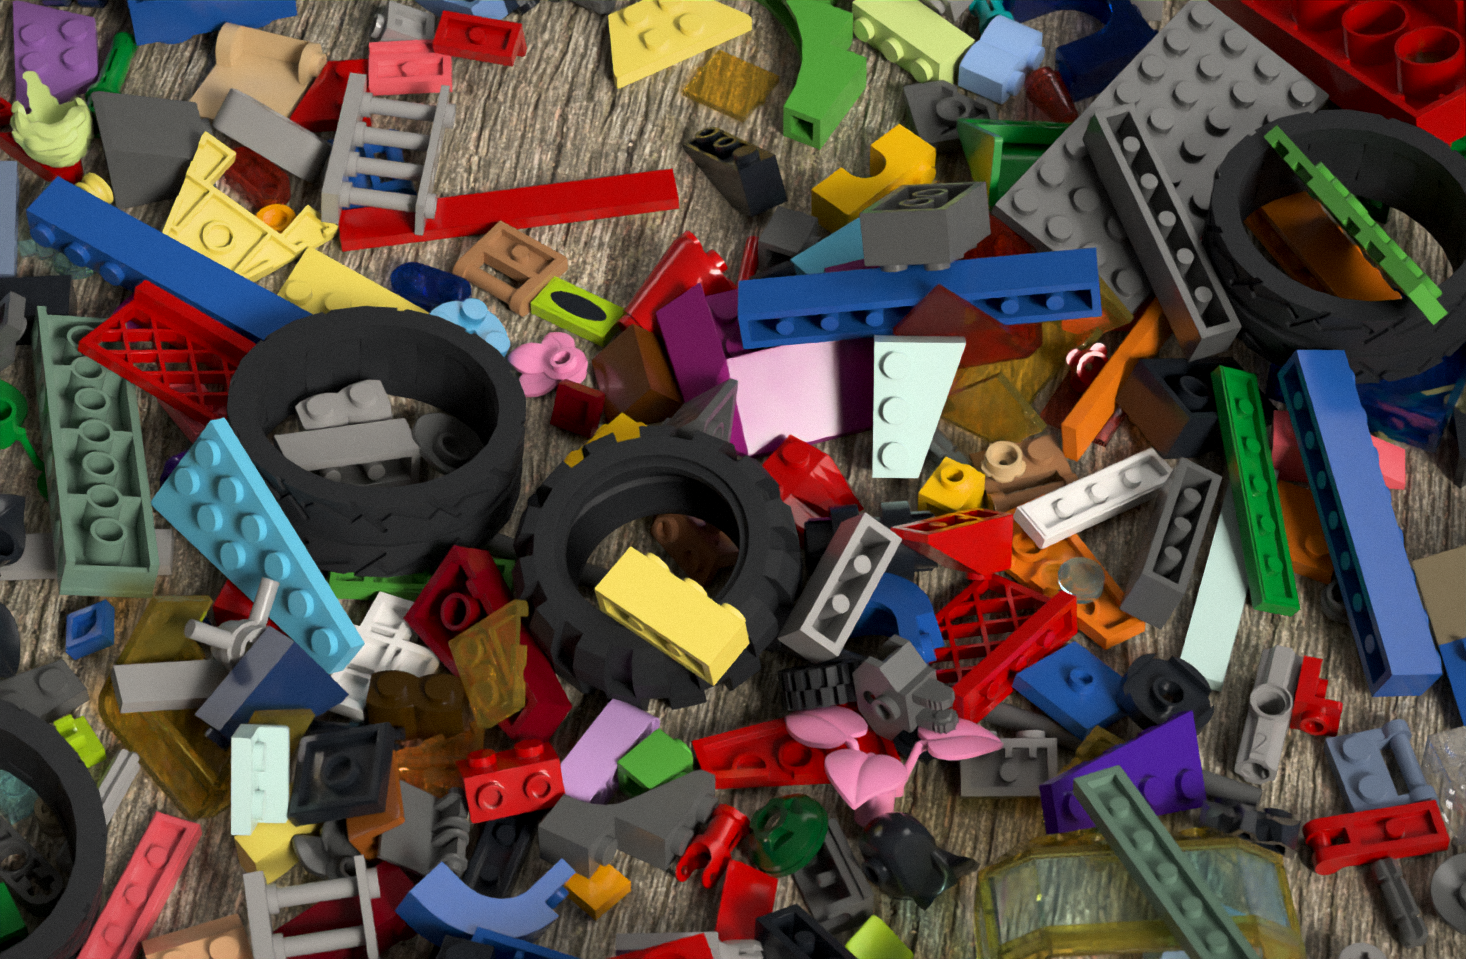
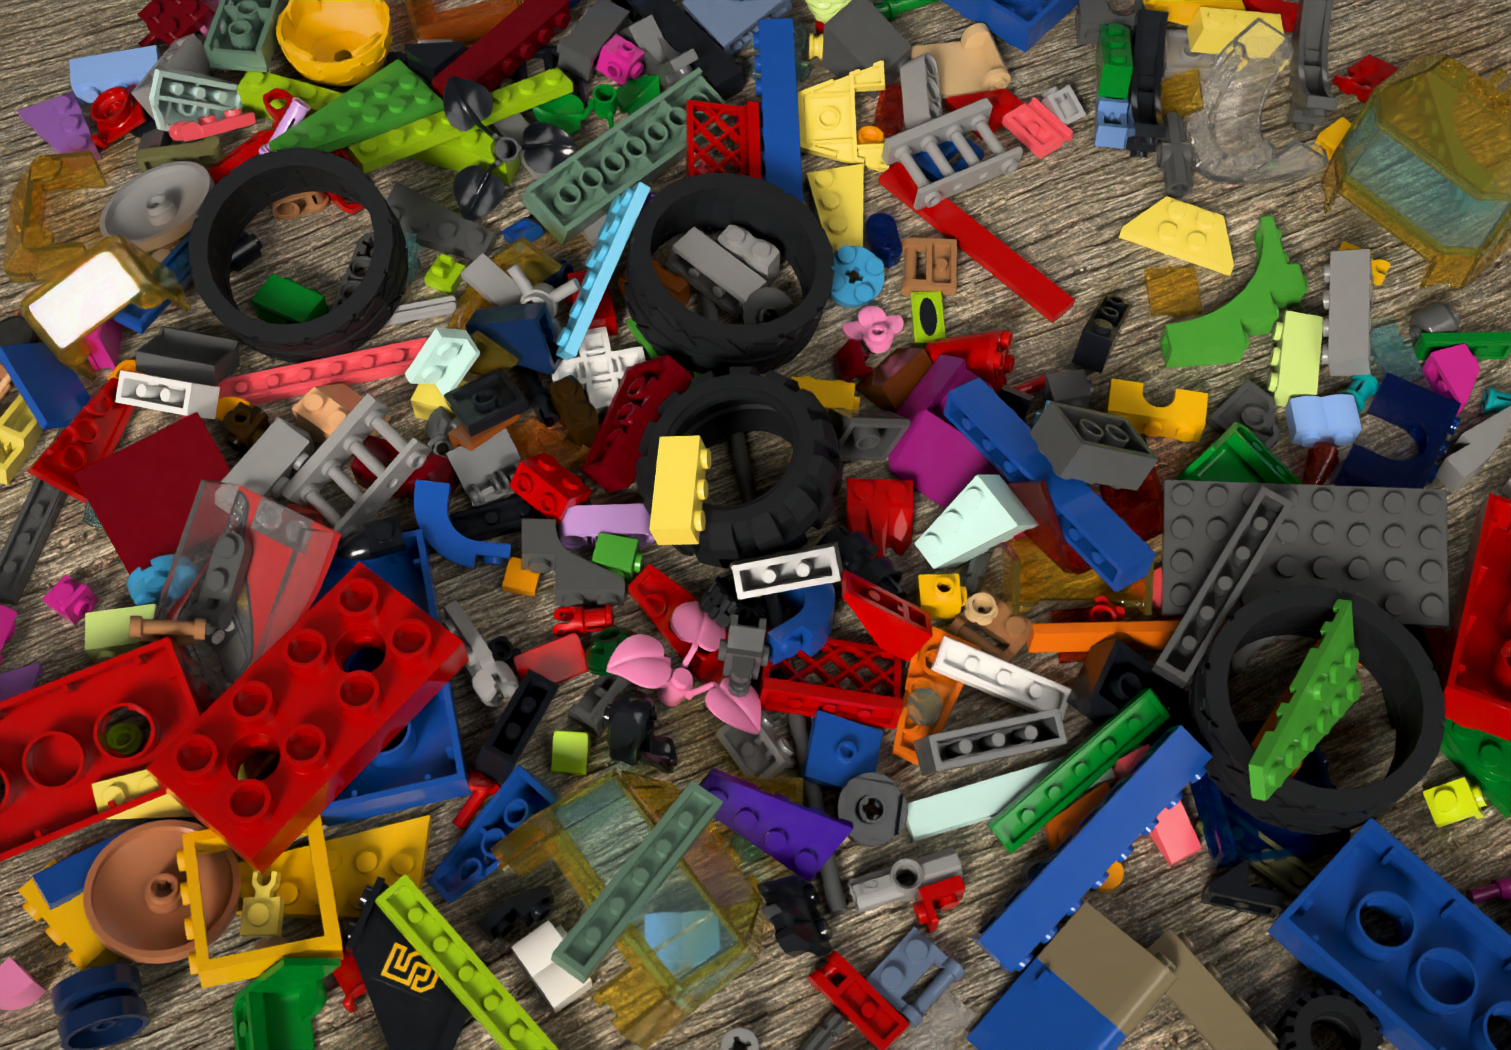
camera: 55 degrees right, 10 degrees up
(479, 38) = (1081, 144): red panel -> none
(493, 664) = (608, 427): clear yellow wing -> none

